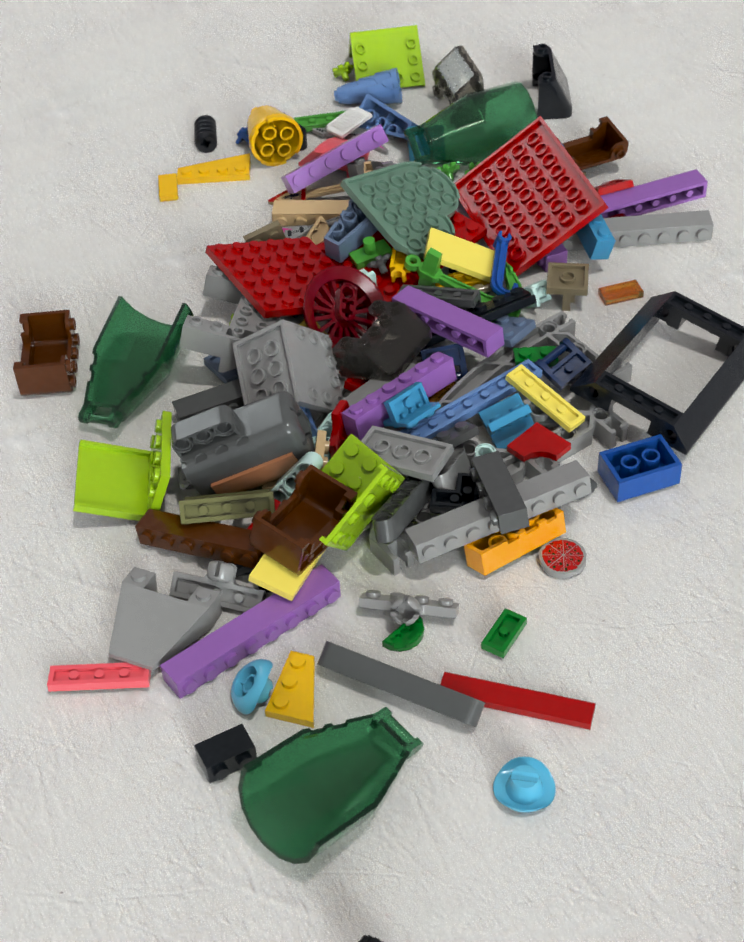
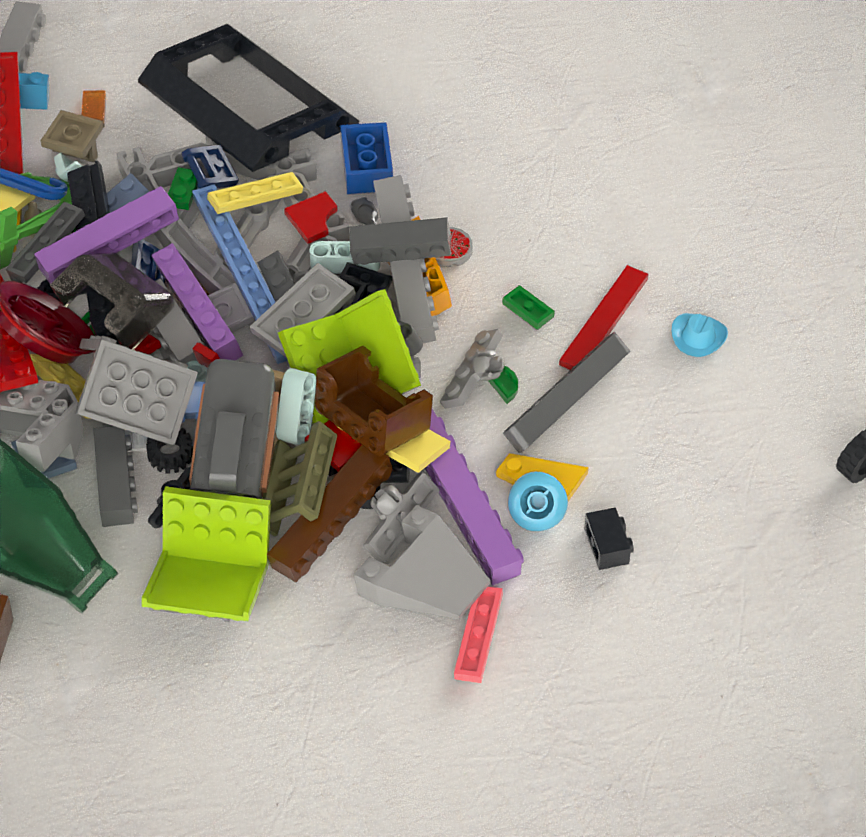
camera: 80 degrees left, 5 degrees up
(323, 783) = (688, 455): clear green windscreen -> none
(409, 407) = (234, 295): dark azure bracket -> none
(506, 420) = (265, 230): dark azure bracket -> none

